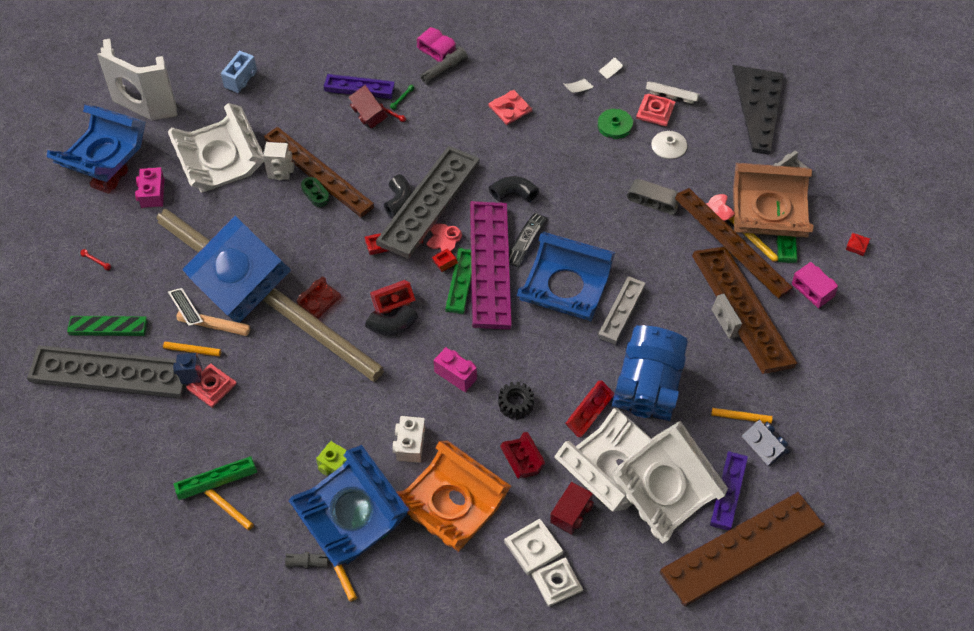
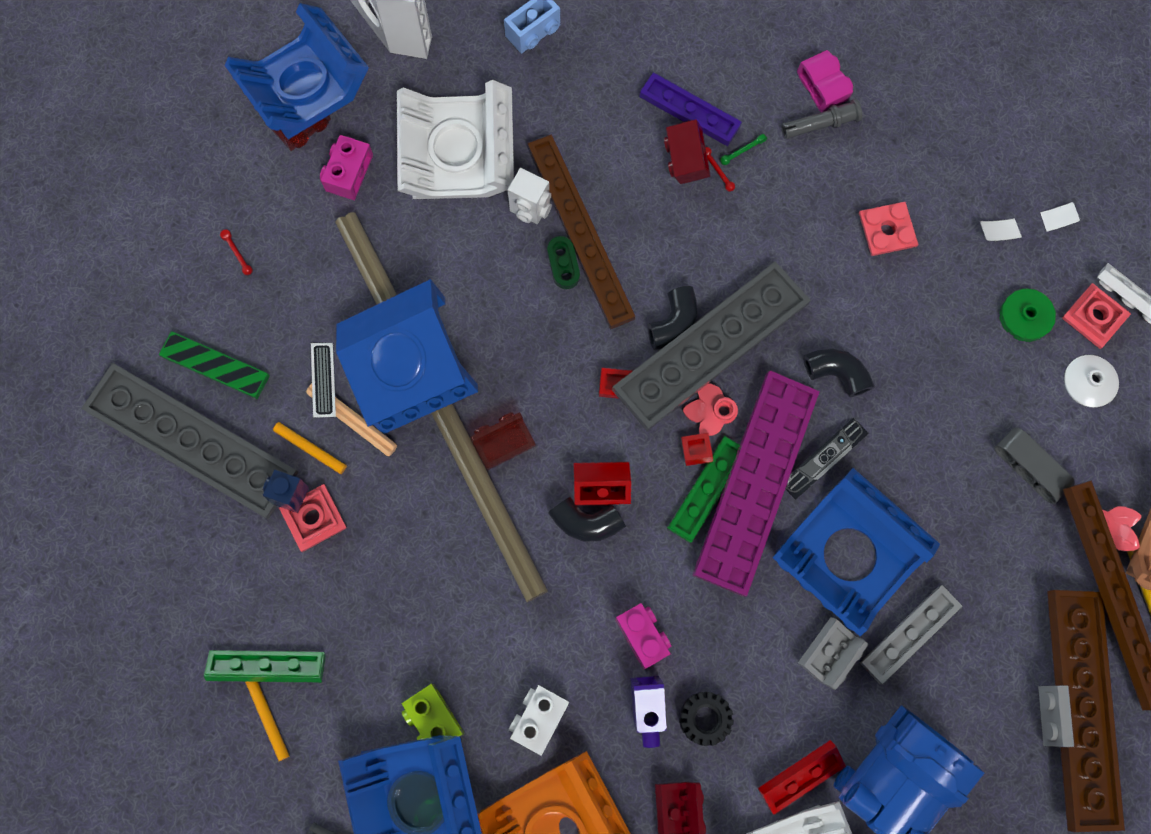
camera: 20 degrees right, 20 degrees up
(476, 403) = (649, 697): none -> torso
(578, 336) = (832, 654): none -> light grey bracket

